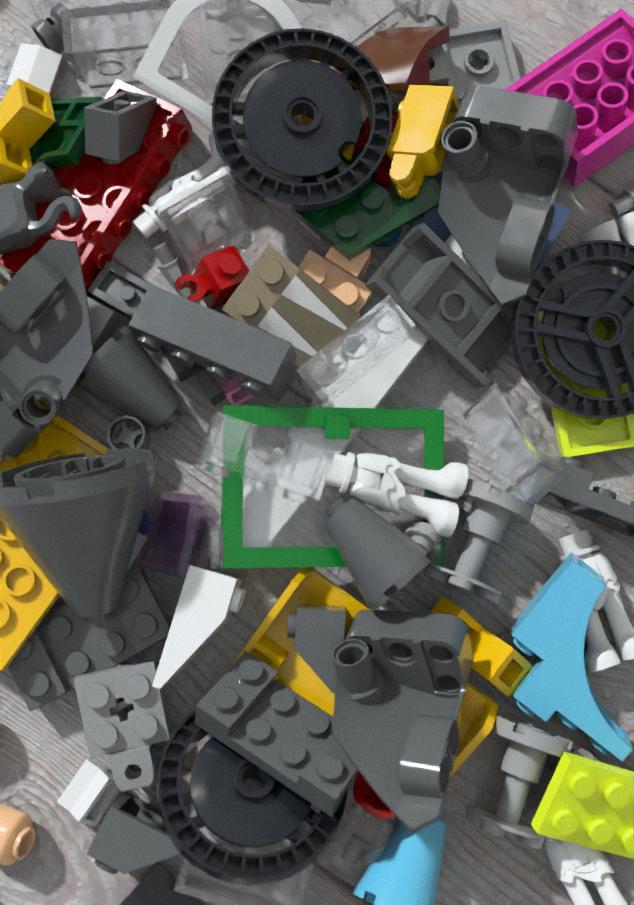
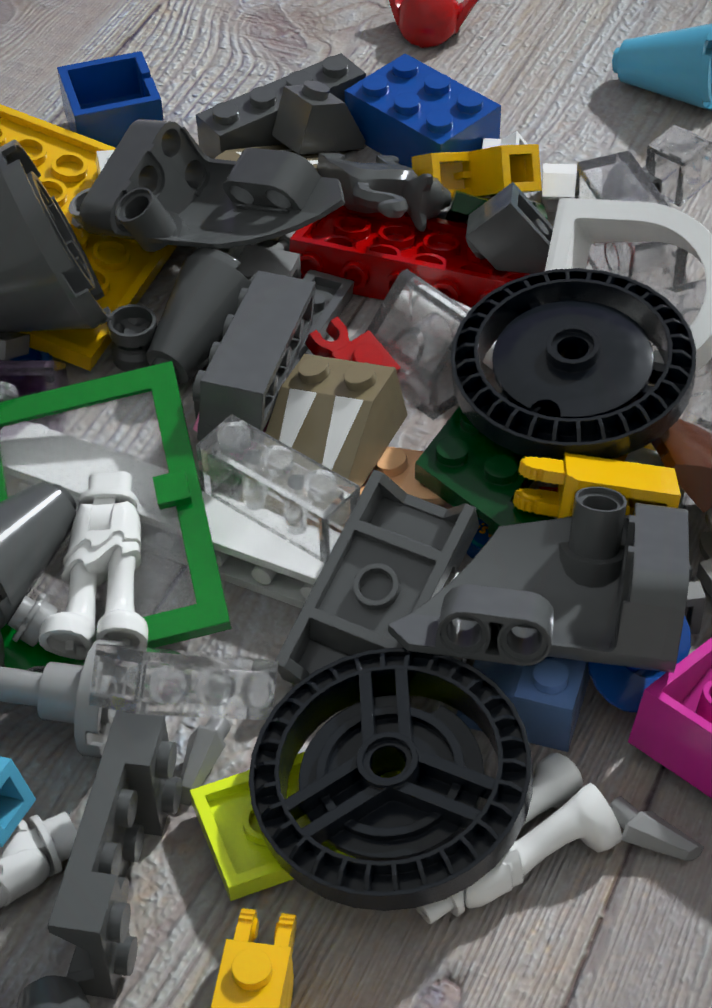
camera: 80 degrees right, 35 degrees down
(230, 449) = (109, 365): clear arch -> none

